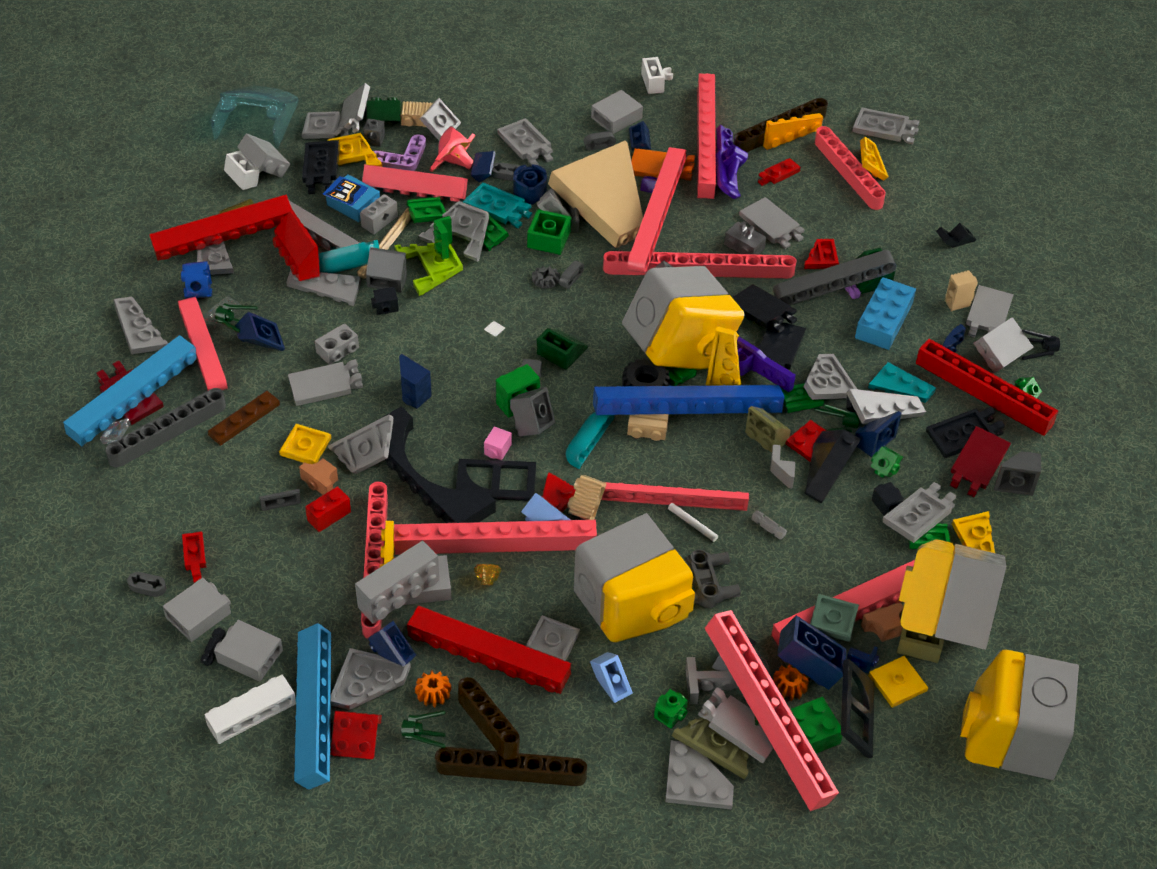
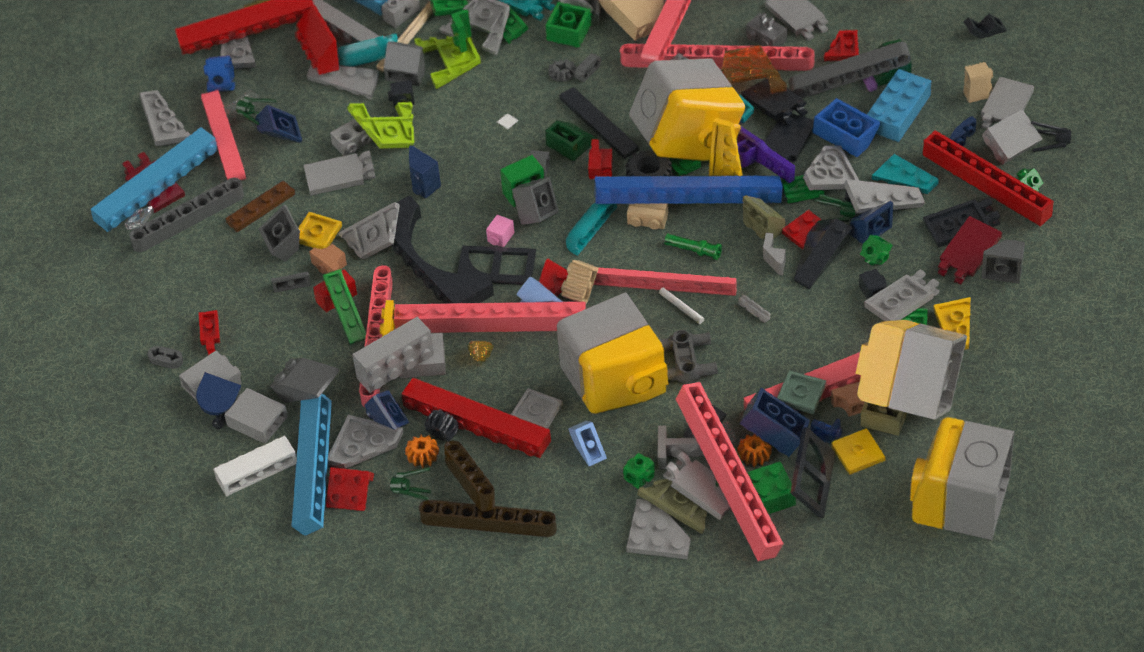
camera: 10 degrees right, 0 degrees up
(204, 627) = (216, 394): none -> dark blue tile
(268, 448) = (281, 234): none -> dark grey slope
(300, 610) = (303, 380): none -> dark grey slope
(340, 527) = (345, 306): none -> green tile
(374, 339) = (386, 131): none -> lime wing
(453, 659) = (441, 425): none -> black gear
(588, 330) = (599, 123): none -> black tile
(593, 370) = (600, 161): none -> red piece
(707, 460) = (700, 247): none -> green pin
(738, 272) = (751, 64): none -> clear orange wing
(837, 335) = (845, 127): none -> blue slope

